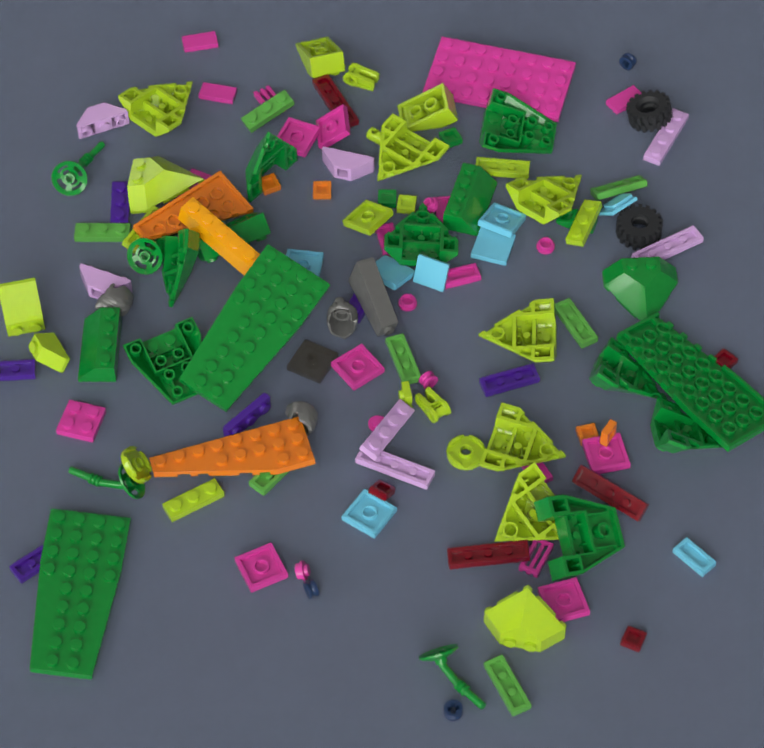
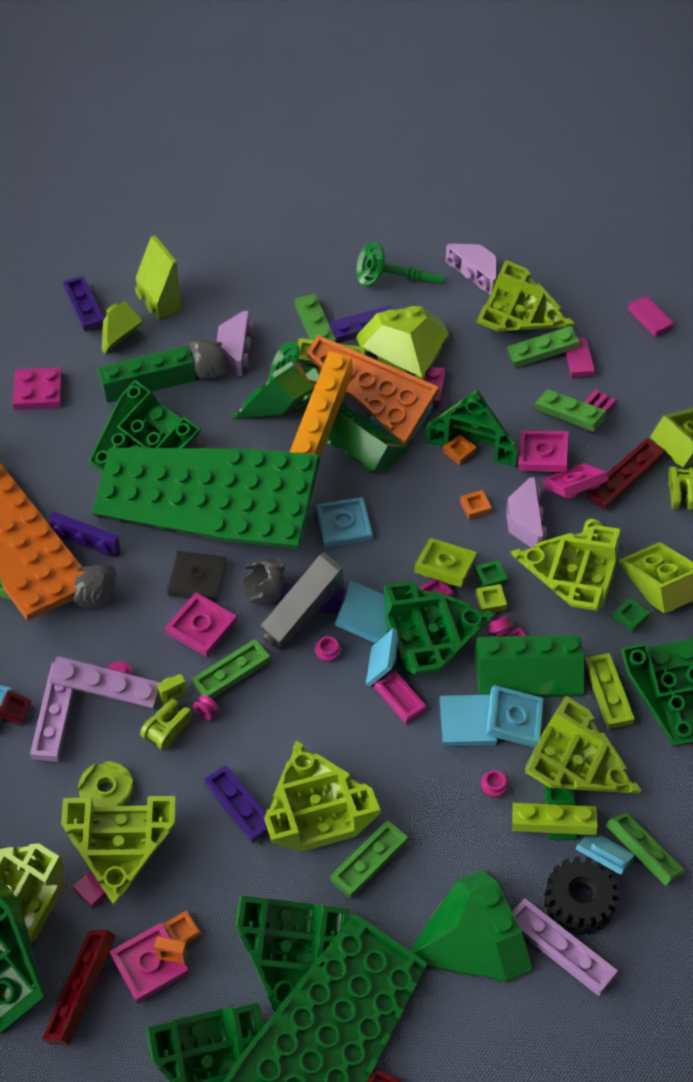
camera: 70 degrees right, 0 degrees up
(200, 108) = (543, 346): none -> bright green plate

